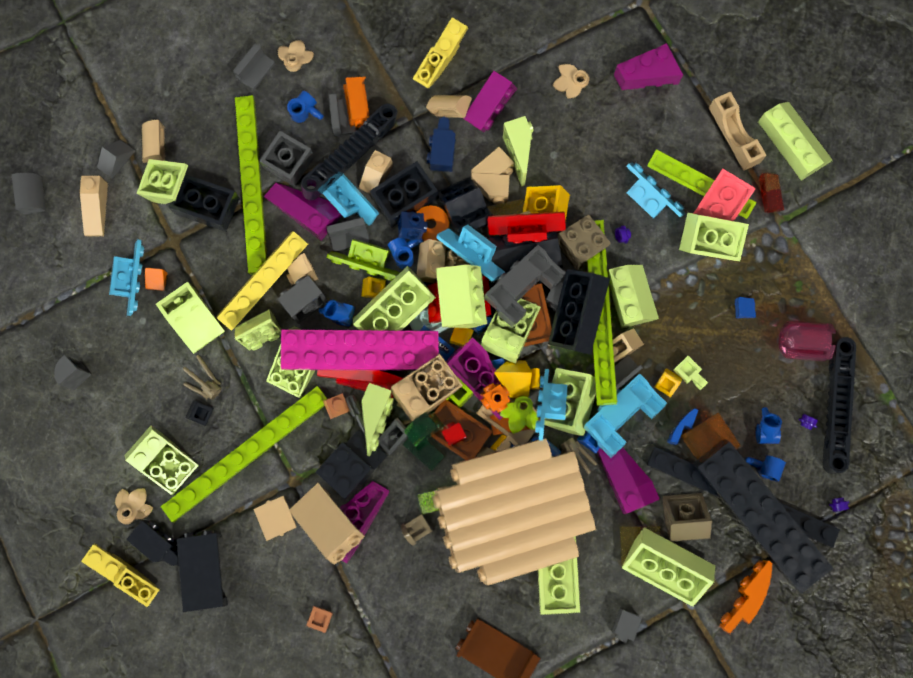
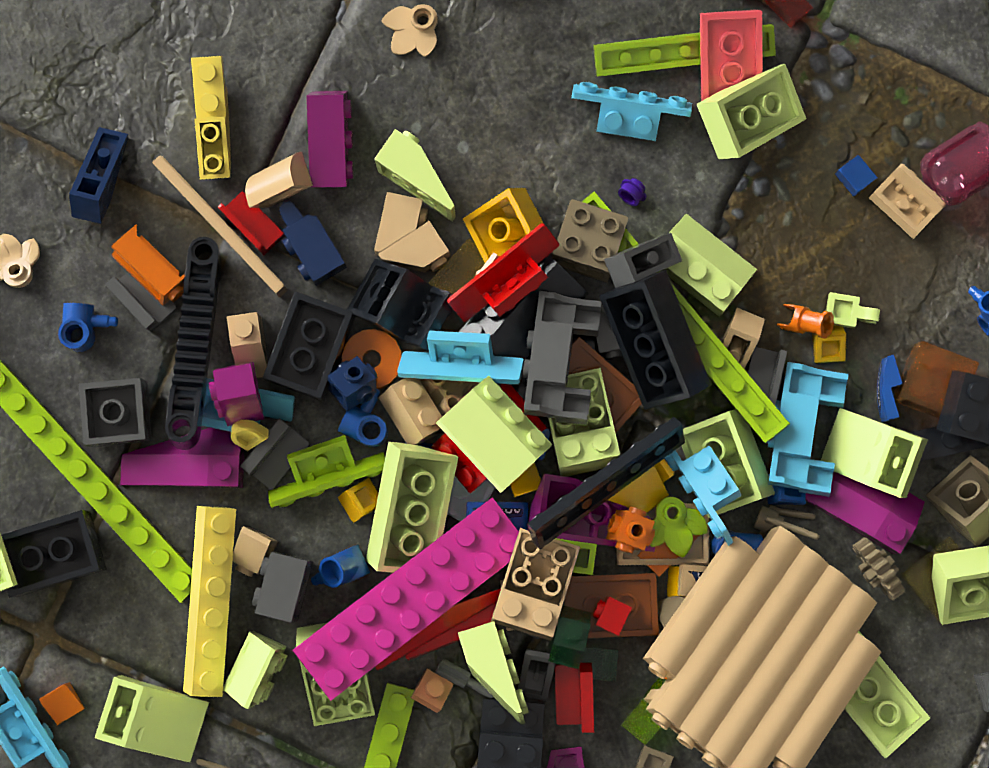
camera: 40 degrees left, 5 degrees up
(342, 213) = (248, 434): none -> light yellow tile
(350, 186) = (236, 393): none -> magenta wedge
(365, 43) = (98, 176): none -> dark blue slope
(405, 108) = (220, 226): none -> tan tile
(405, 462) = (575, 696): none -> red panel
(422, 118) = (252, 223): none -> red panel
(500, 363) = (606, 483): none -> black plate
(603, 266) = (643, 260): none -> dark grey slope
(609, 512) = (878, 568): none -> dark tan gear
(651, 452) = (874, 453): none -> yellowish green slope
(665, 361) = (808, 321): none -> orange piece
(763, 338) = (907, 200): none -> tan bracket

